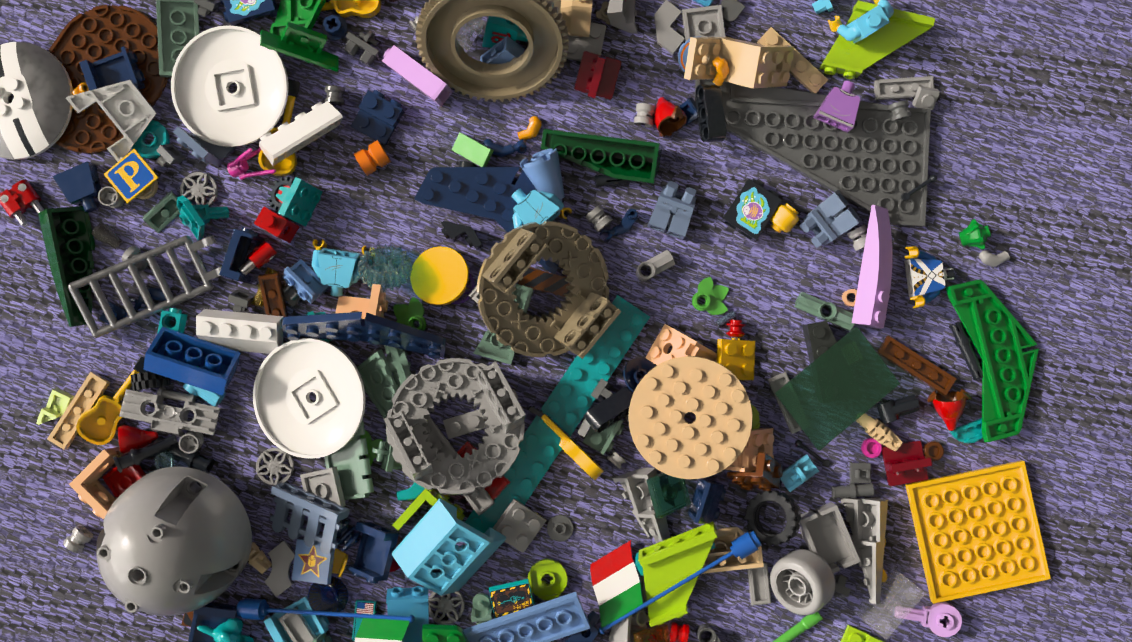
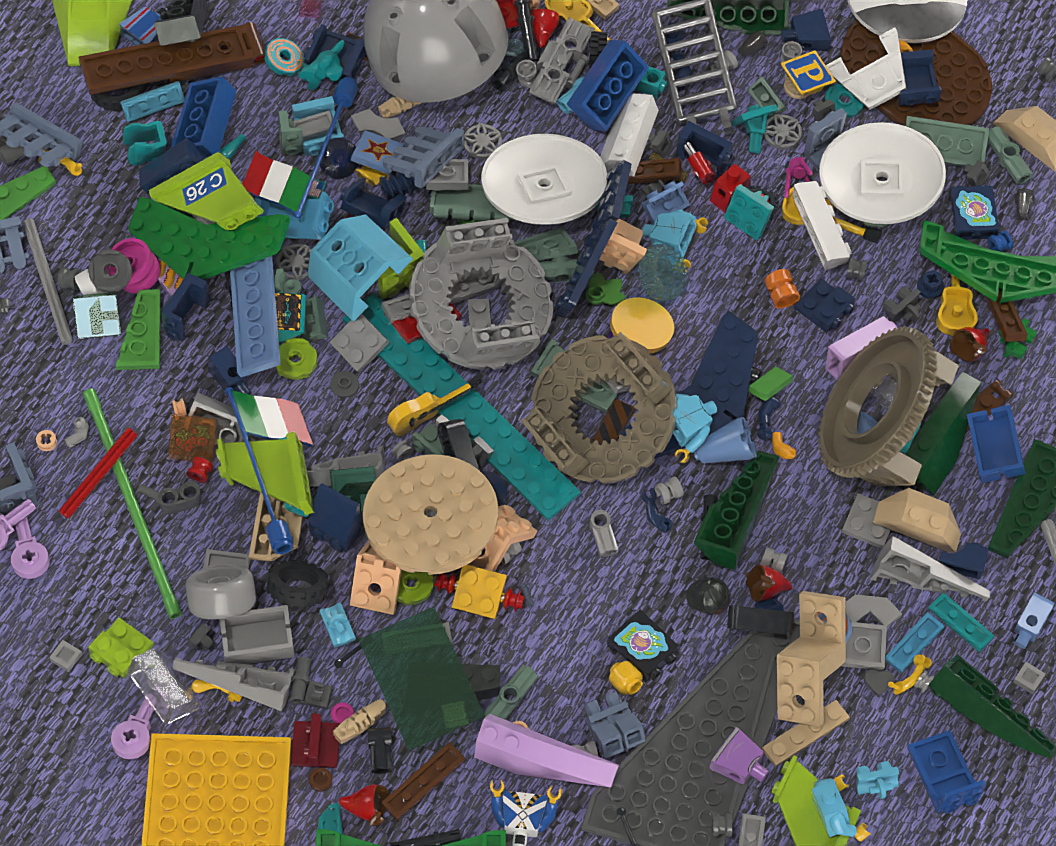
camera: 100 degrees right, 25 degrees down
(301, 44) = (911, 243): green bracket -> none
(455, 231) = (686, 349): black slope -> none
(502, 572) = (315, 320): none -> sand green slope
(597, 75) = (827, 522): dark red bracket -> none
(675, 203) = (669, 568): sand blue hips -> none
(689, 165) = (708, 595): none -> pearl dark grey piece
(713, 296) = (556, 588): bright green plate -> none
(722, 70) = (805, 636): light orange arm -> none
(766, 476) = (349, 579): reddish brown bracket -> none

